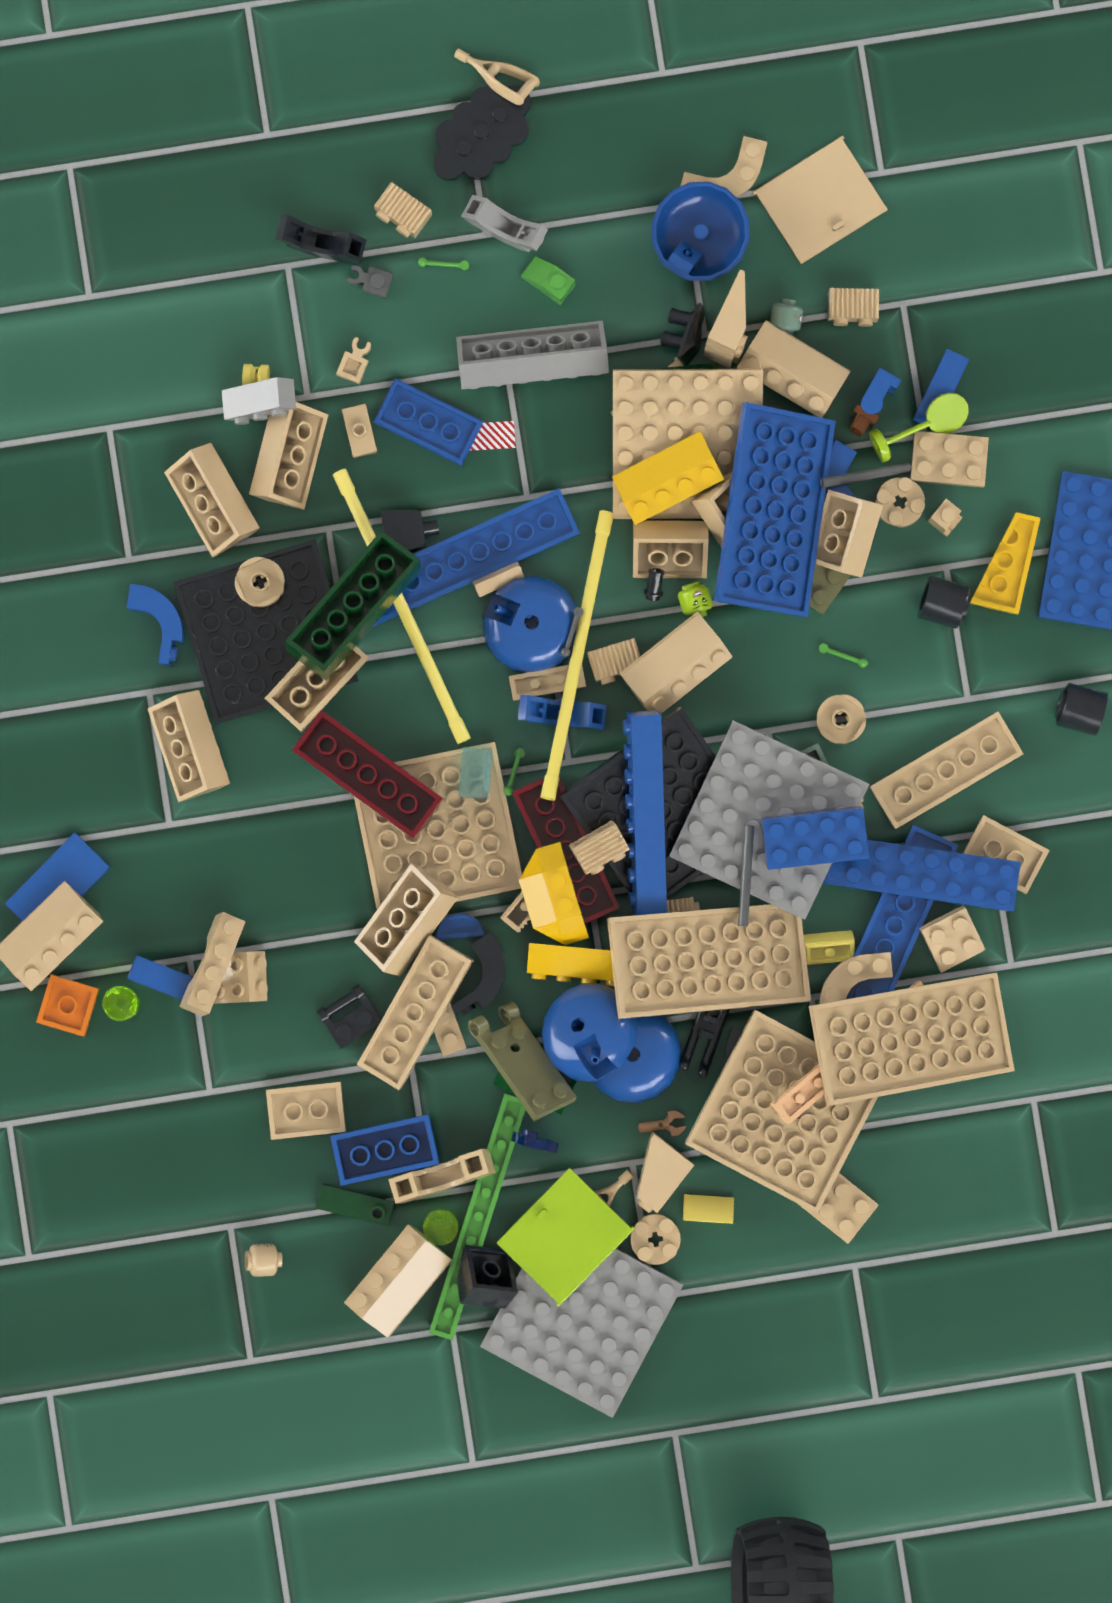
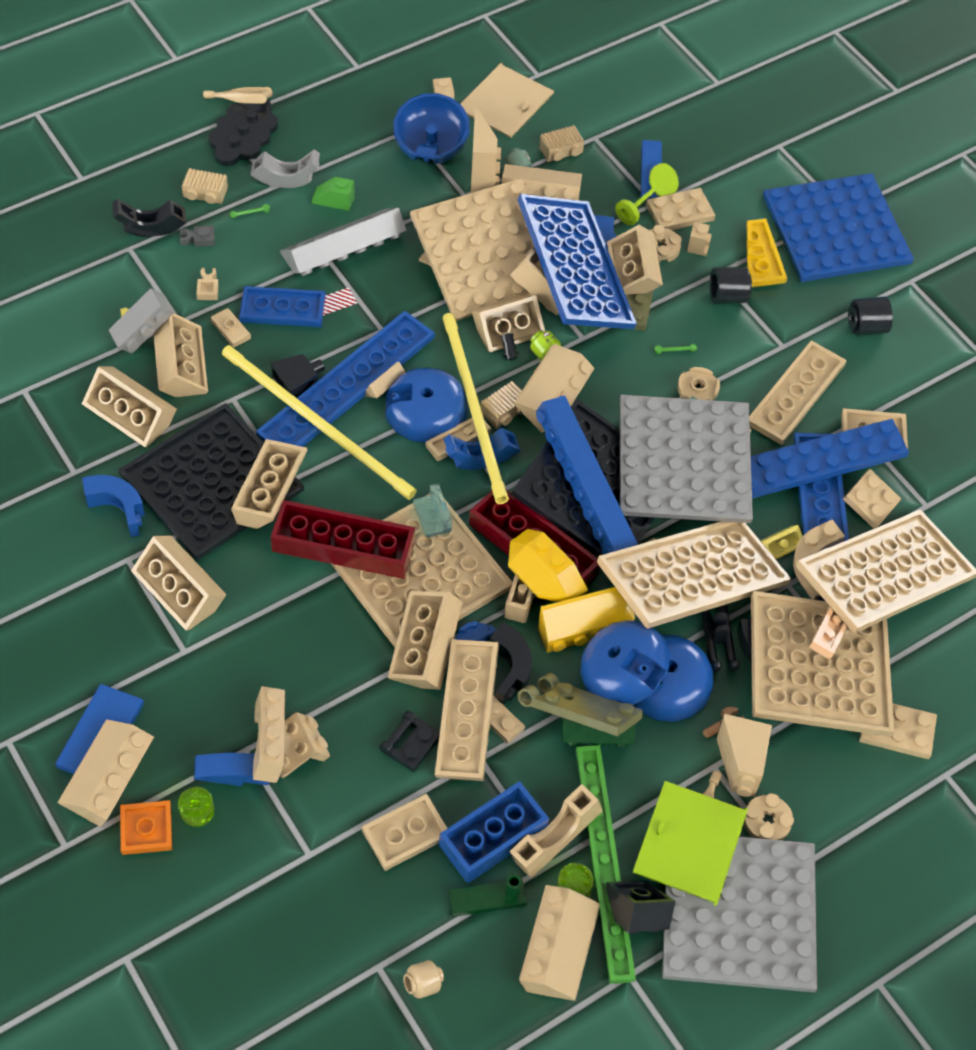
camera: 30 degrees left, 30 degrees down
(246, 577) = (192, 452): tan plate -> none
(353, 605) = (277, 414): dark green brick -> none
(519, 753) = (465, 517): bright green hinge -> none
(530, 1139) = (619, 773): clear blue plate -> none
(578, 611) = (460, 375): dark grey hinge -> none
(599, 848) = (562, 516): tan brick -> none
(668, 477) = (485, 268): yellow slope -> none
(689, 343) = (451, 184): black connector -> none
(708, 1208) = (799, 776): light yellow slope -> none
(746, 875) = (690, 499): dark grey bar -> none
(815, 837) = (729, 446): blue brick -> none
(865, 475) = (617, 231): dark grey piece -> none
(867, 411) = (608, 185): blue hips -> none

